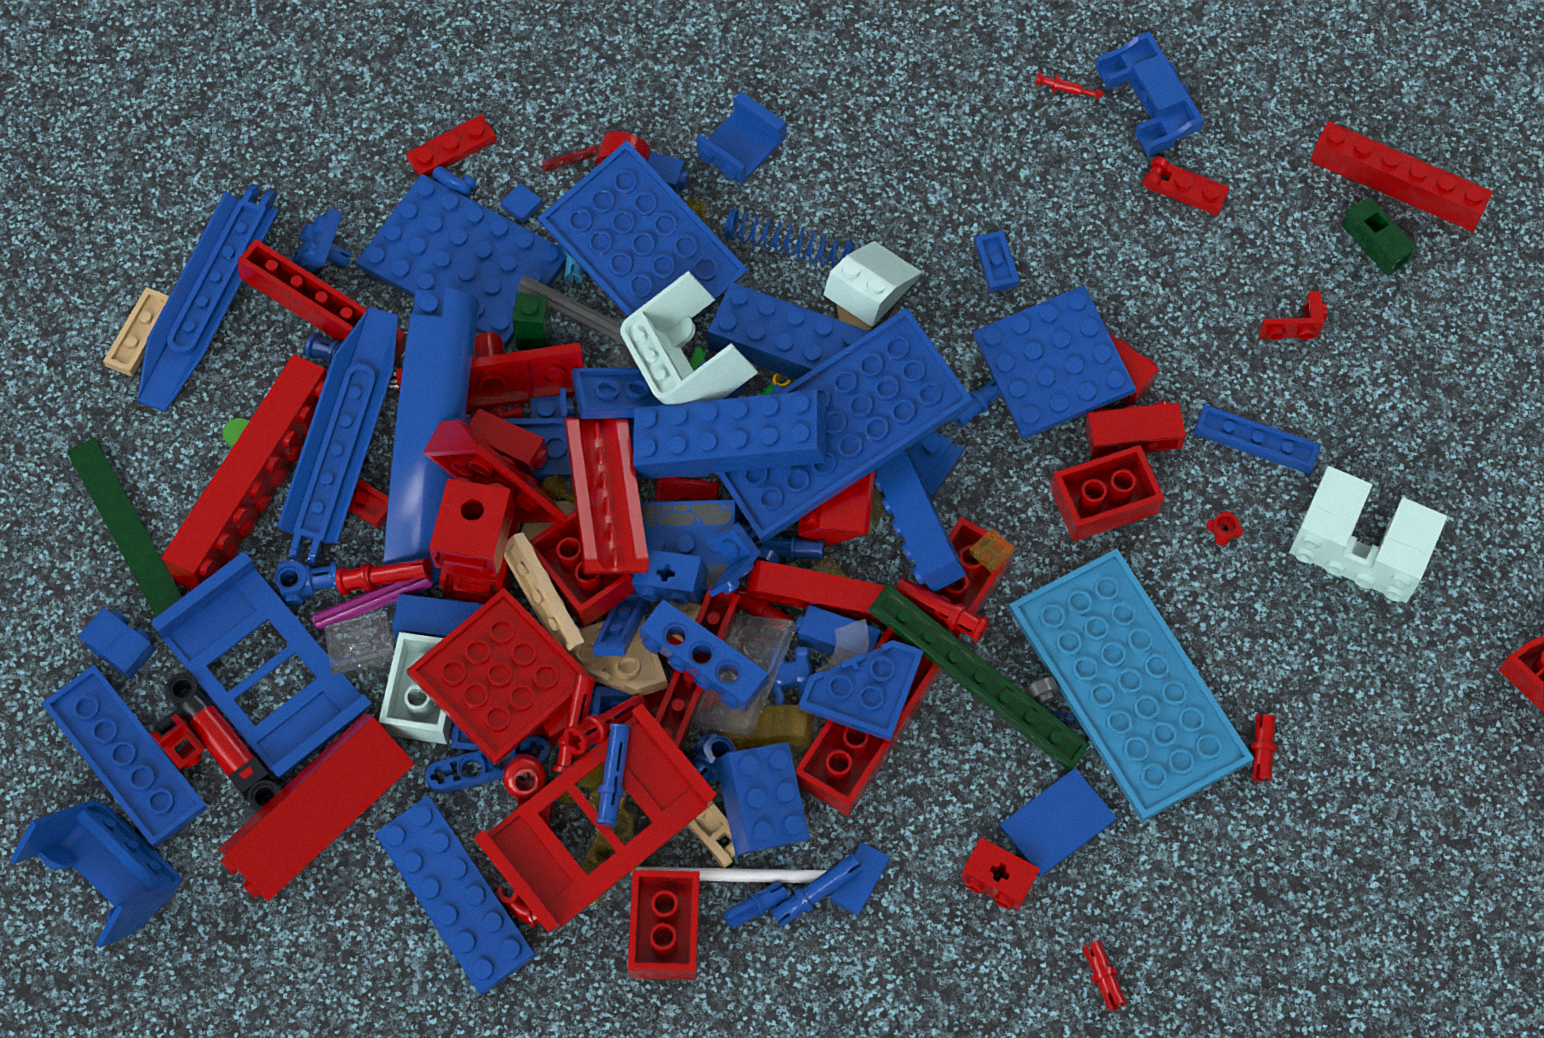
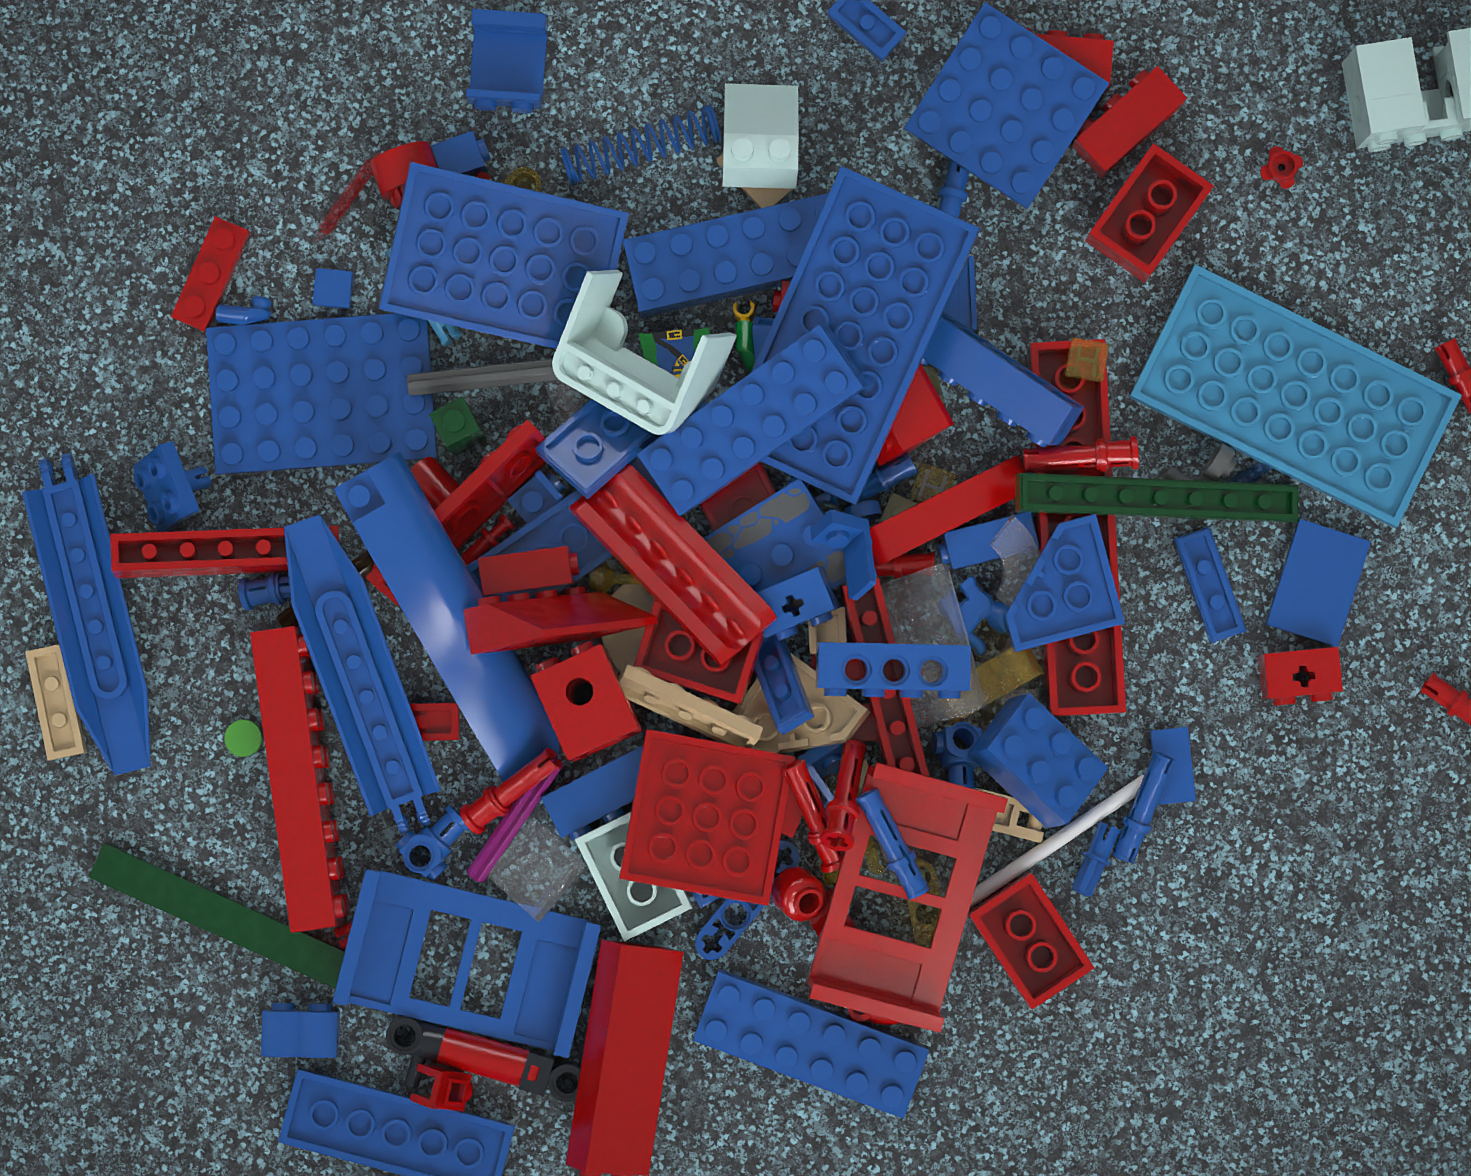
camera: 30 degrees left, 20 degrees up
(976, 772) = (1209, 585): none -> blue tile
(1257, 439) = (1251, 46): blue tile -> none

